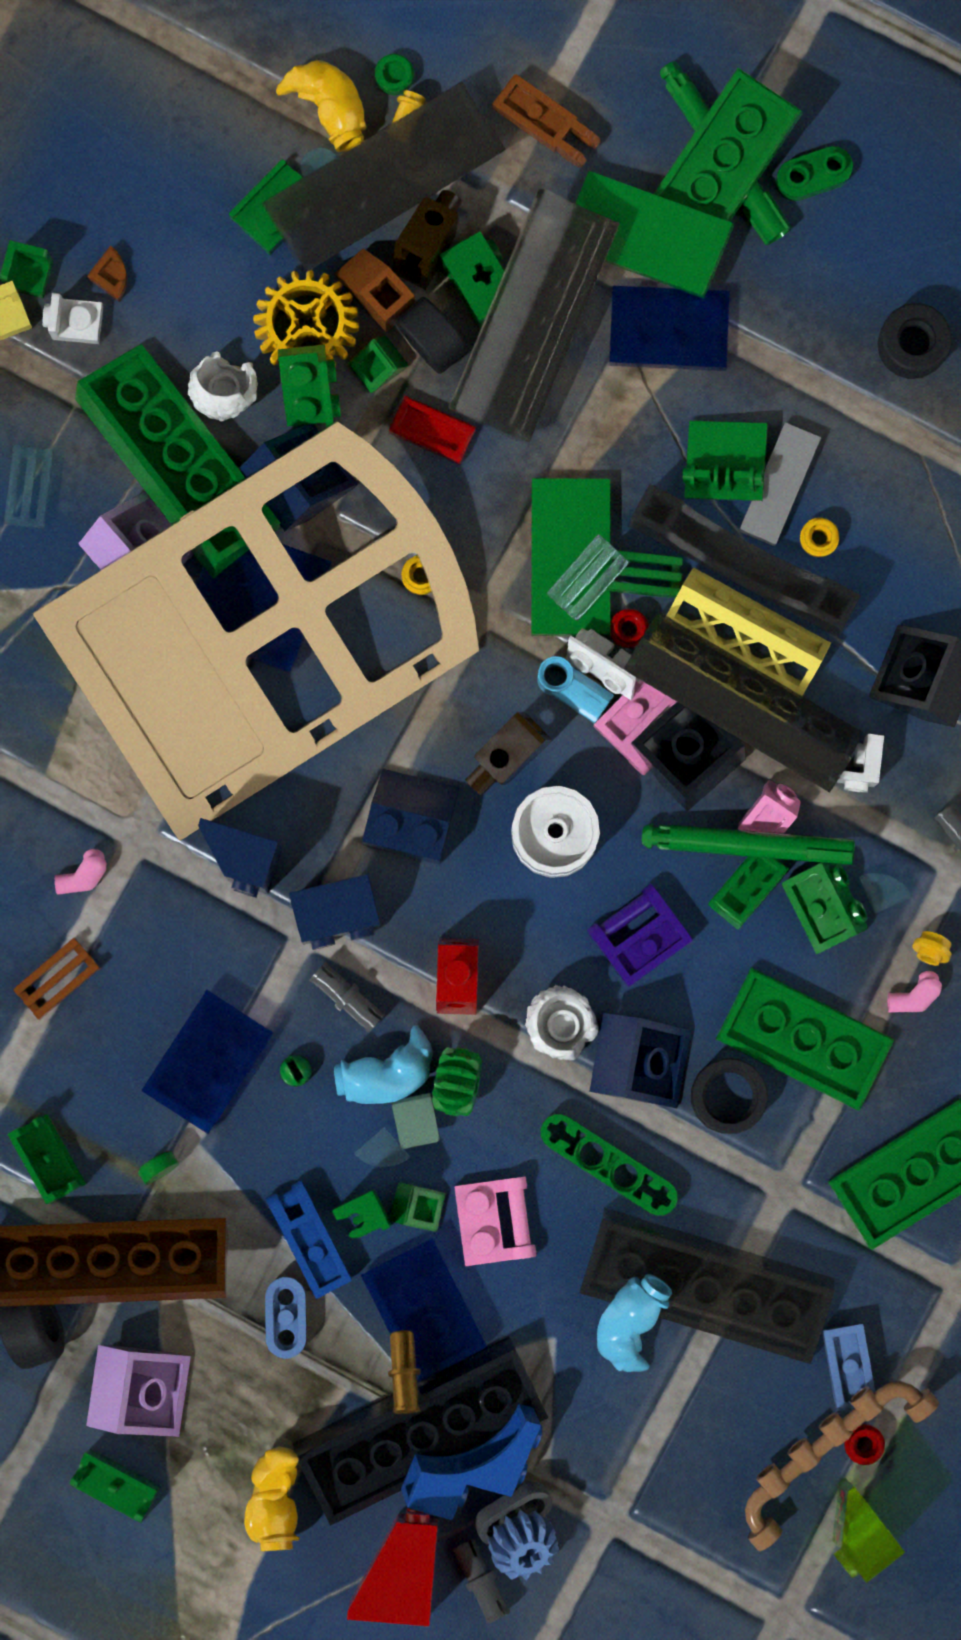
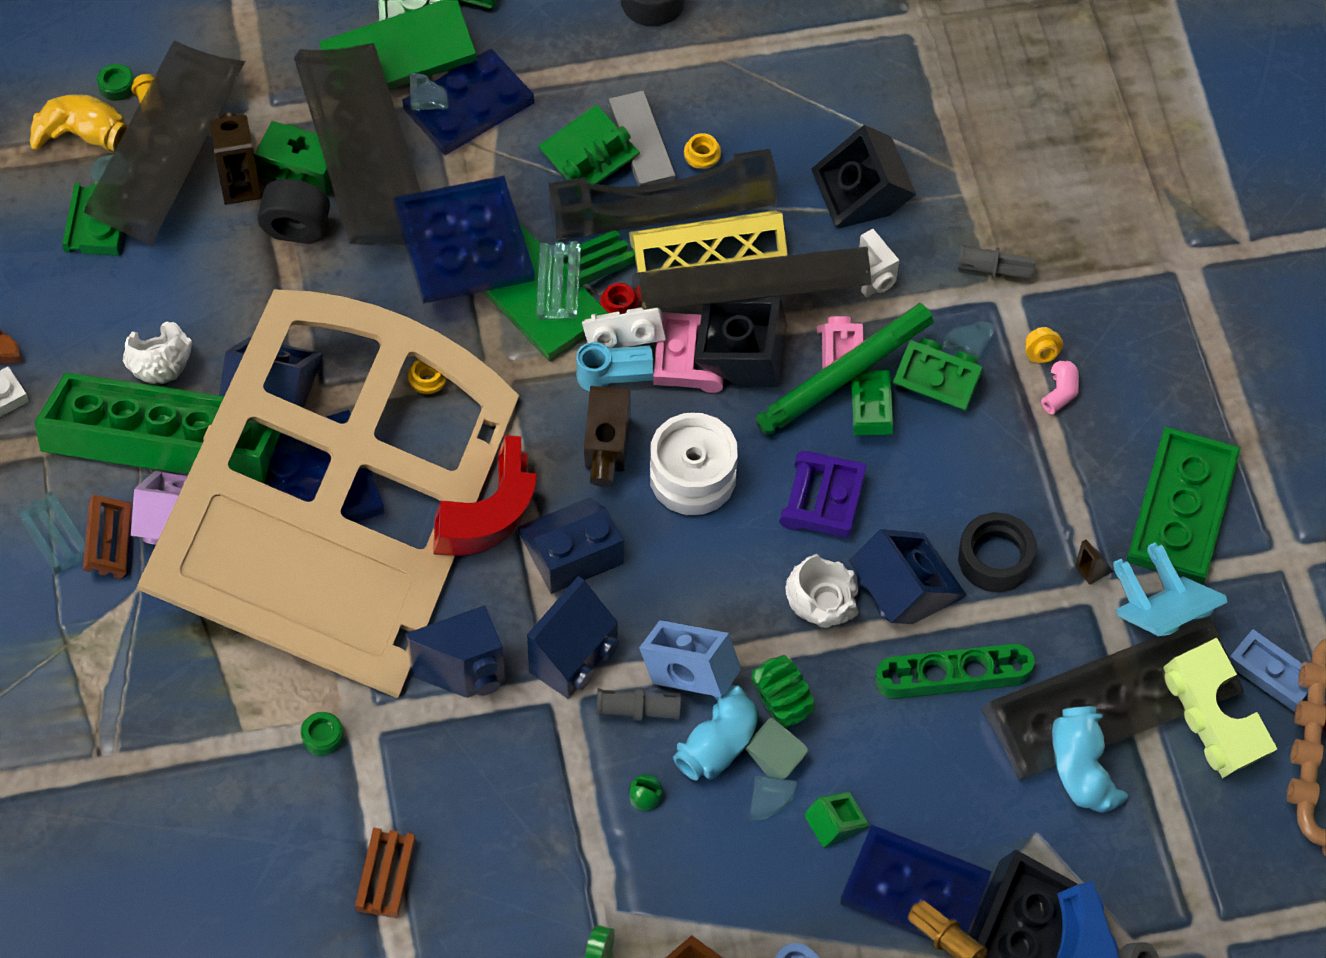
camera: 40 degrees left, 25 degrees down
(53, 515) = (104, 564): none -> dark orange tile
(85, 877) = (343, 777): bright pink arm -> none
(98, 826) = (322, 733): none -> green tile
(207, 1062) = (569, 837): clear blue plate -> none
(306, 385) = (226, 302): green bracket -> none
(309, 1241) = (774, 907): blue plate -> none
(316, 309) = (195, 266): yellow gear -> none
(369, 753) = (481, 525): none -> red arch
(370, 1212) = (803, 837): green hinge -> none
(376, 288) = (224, 211): dark orange slope -> none
(378, 363) = (266, 266): green slope -> none
(407, 1000) = (690, 658): none -> medium blue brick
(432, 430) = (351, 277): red tile -> none
(457, 976) = (713, 606): red torso -> none
(481, 1221) = (900, 791): bright pink plate -> none
(542, 478) = (463, 239): none -> clear blue plate
(543, 119) = (258, 35): dark orange hinge -> none
(631, 300) = (426, 93): none -> clear light blue tile
(776, 1333) = (1228, 741): none -> yellowish green arch
(797, 1166) = (1091, 563): none -> dark brown piece
(804, 1039) = (1012, 475): green tile -> none
(816, 1254) = (1175, 605): none -> medium azure plate

